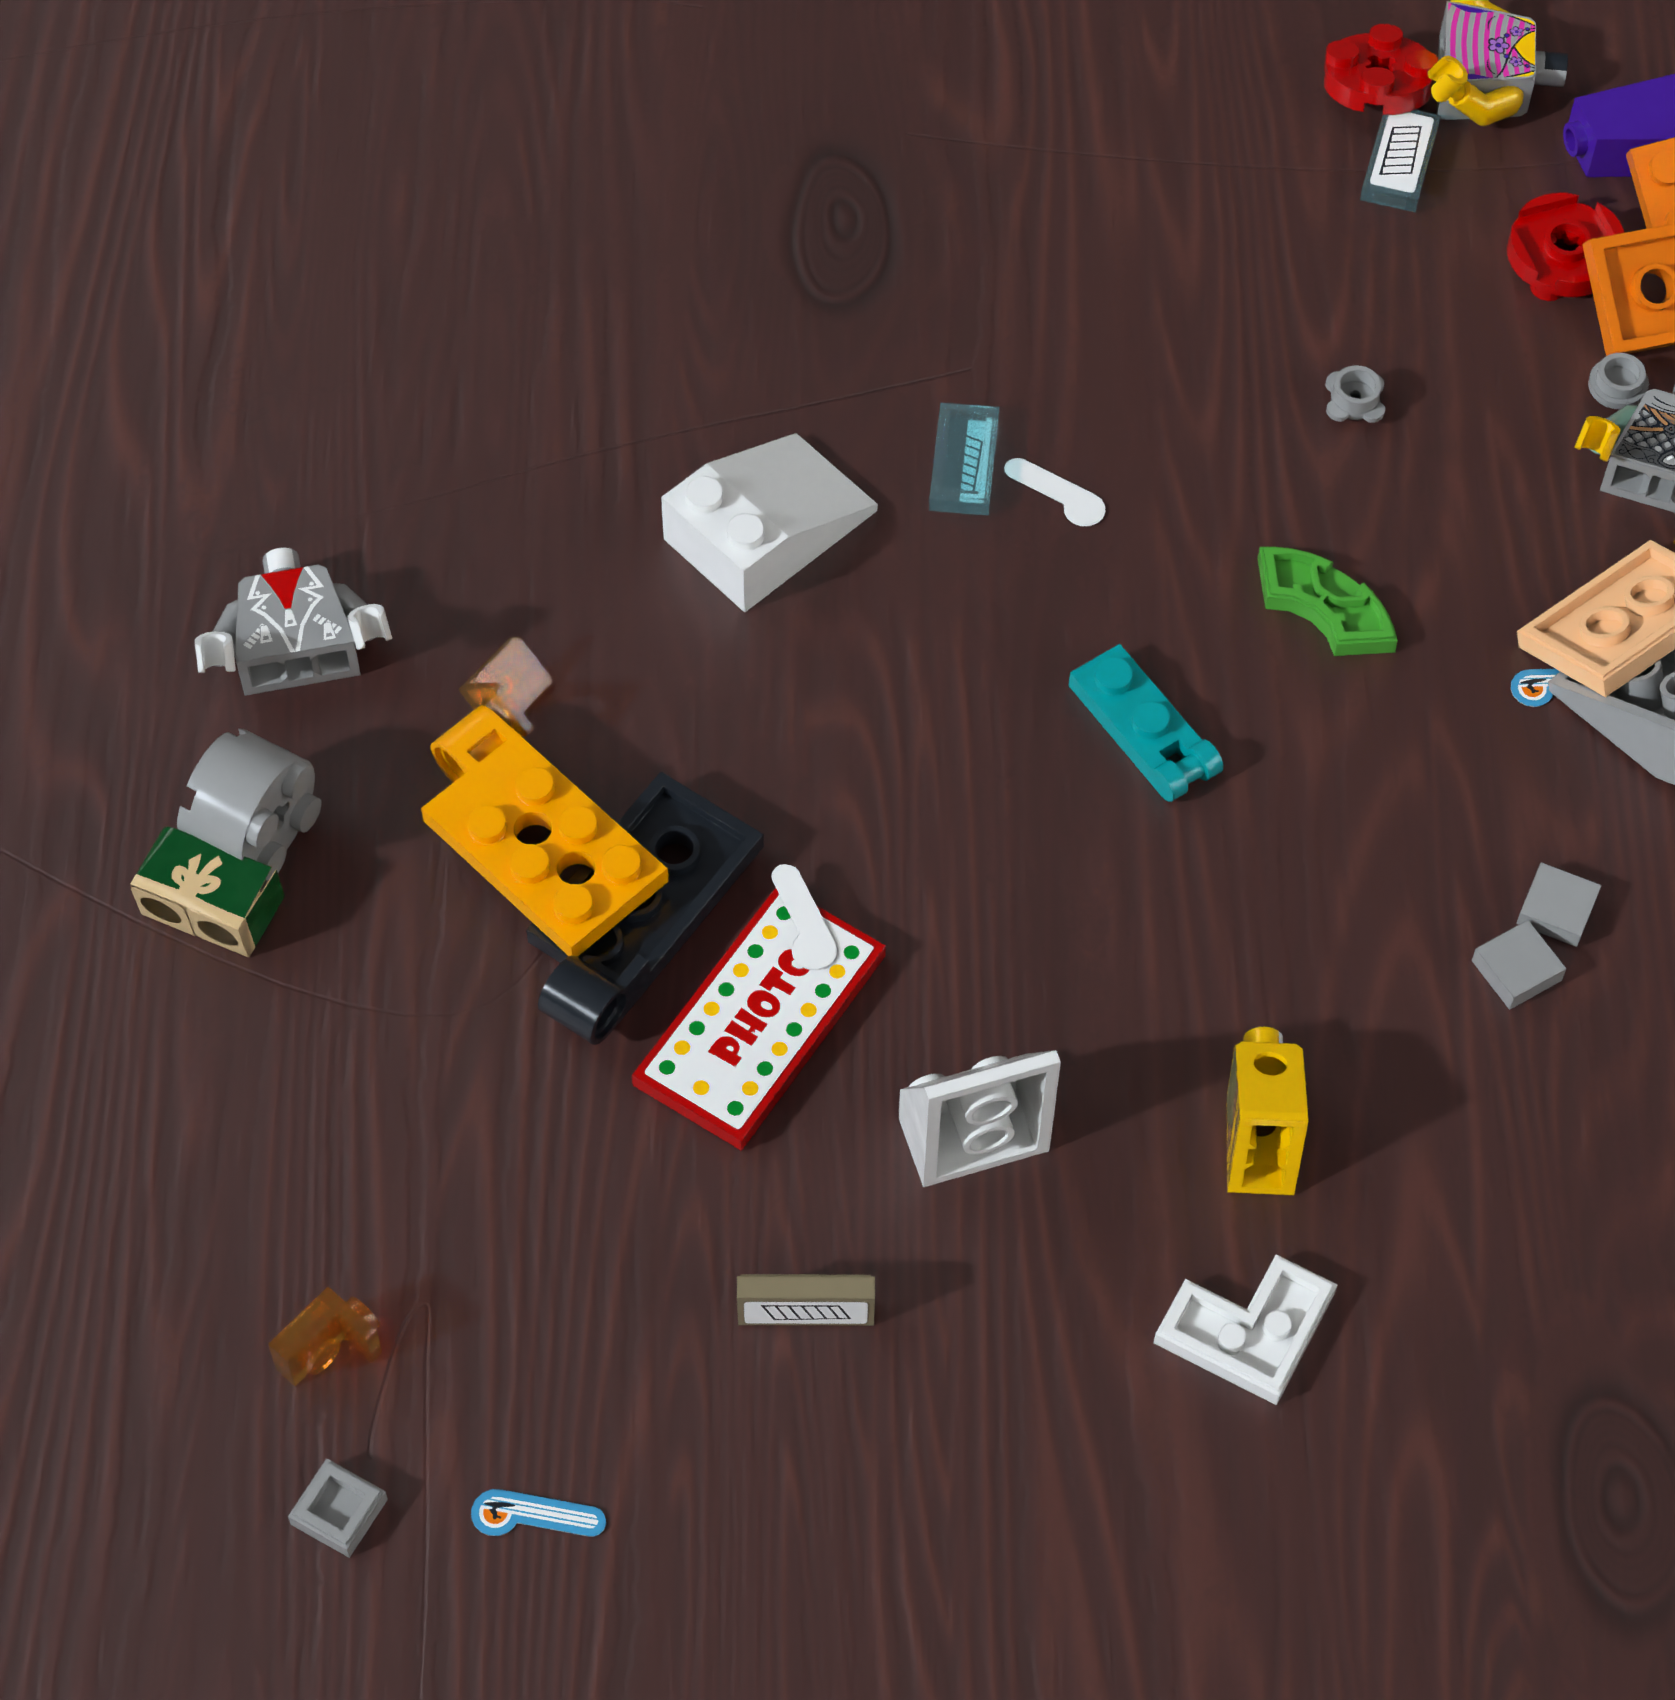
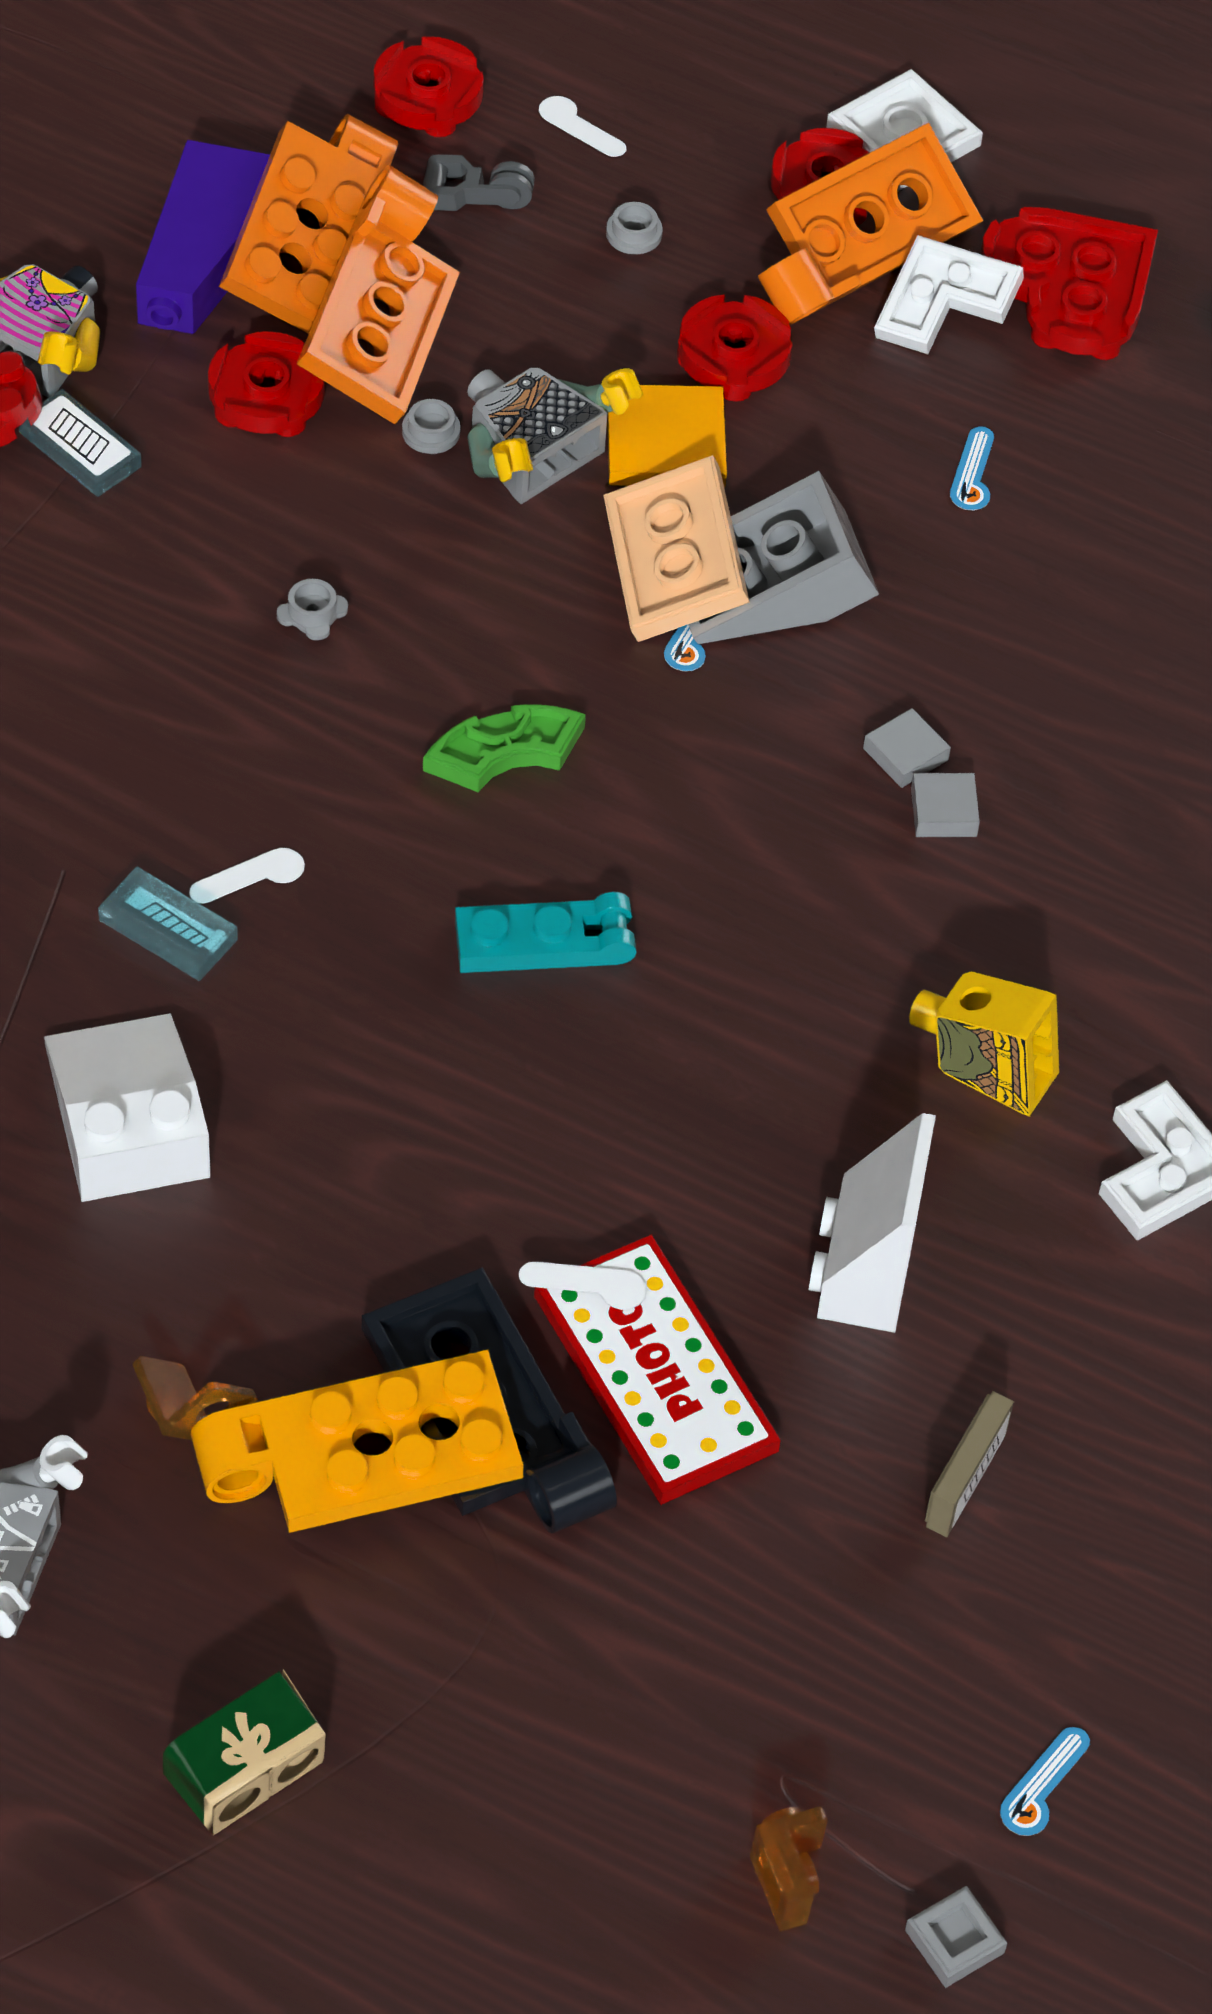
camera: 65 degrees left, 5 degrees down
(250, 798) = (184, 1657): light grey brick -> none

